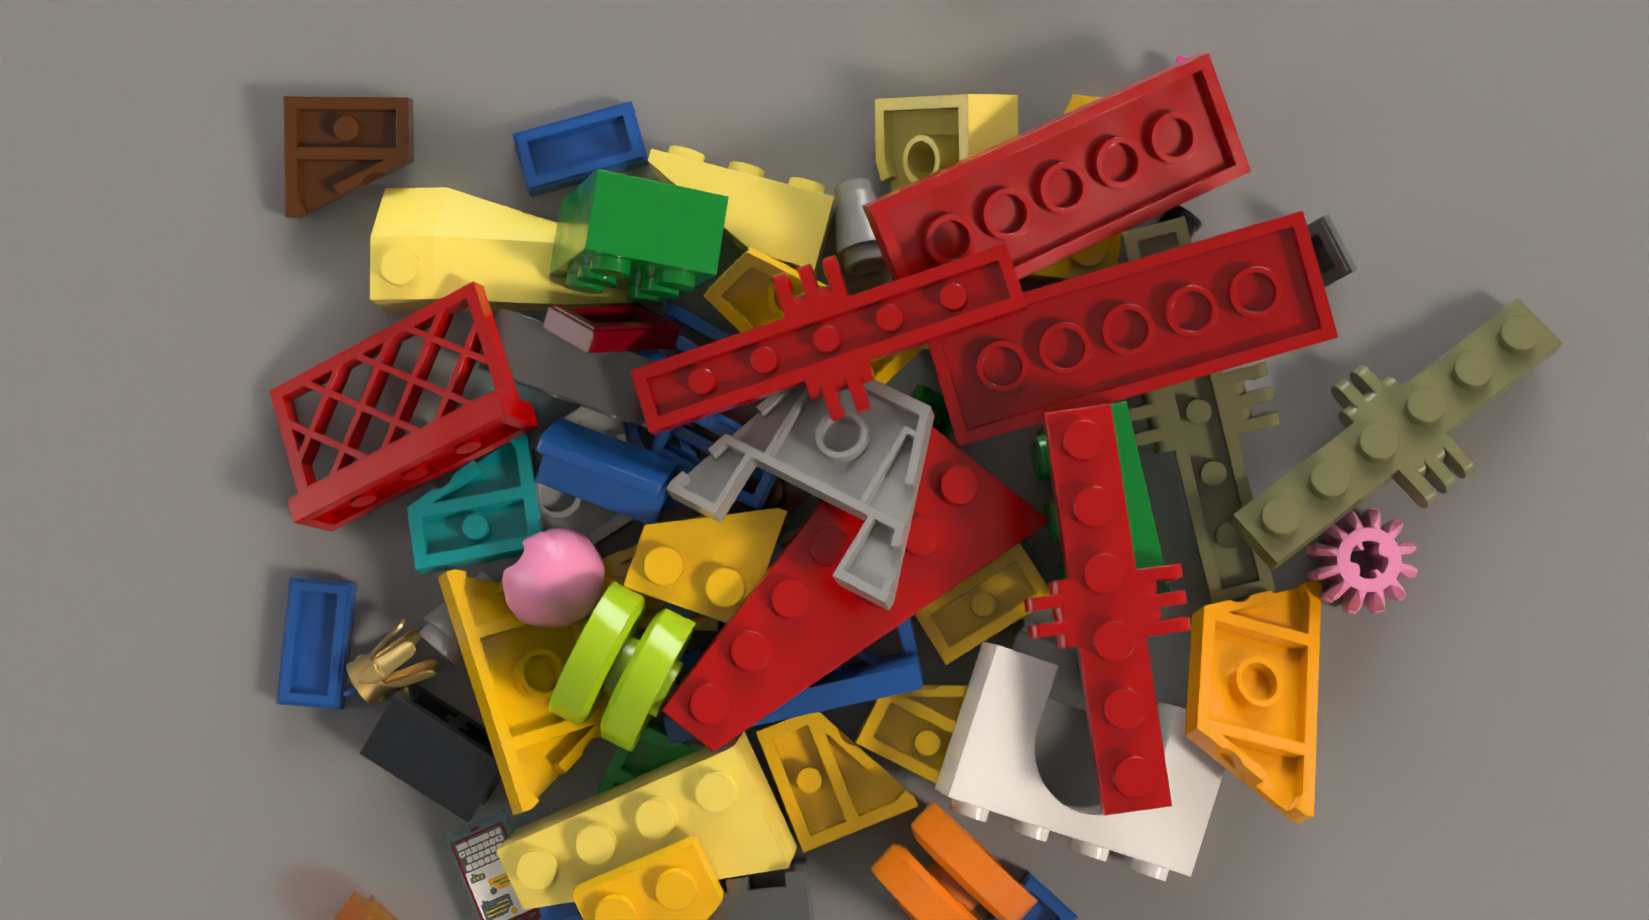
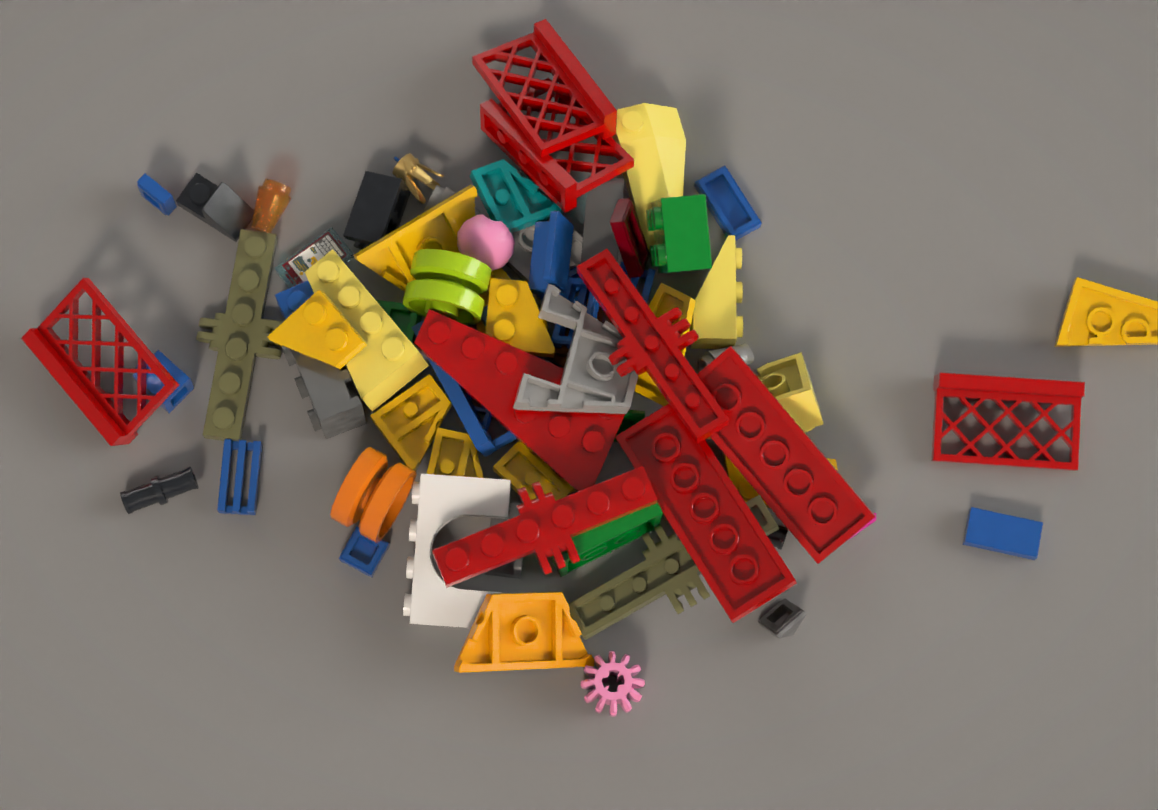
camera: 65 degrees right, 10 degrees down
(299, 349) = (572, 80): none -> red fence
(316, 643) = (418, 137): blue tile -> none
(342, 146) = (691, 79): reddish brown wing -> none
(1396, 435) = (691, 683): olive hinge -> none

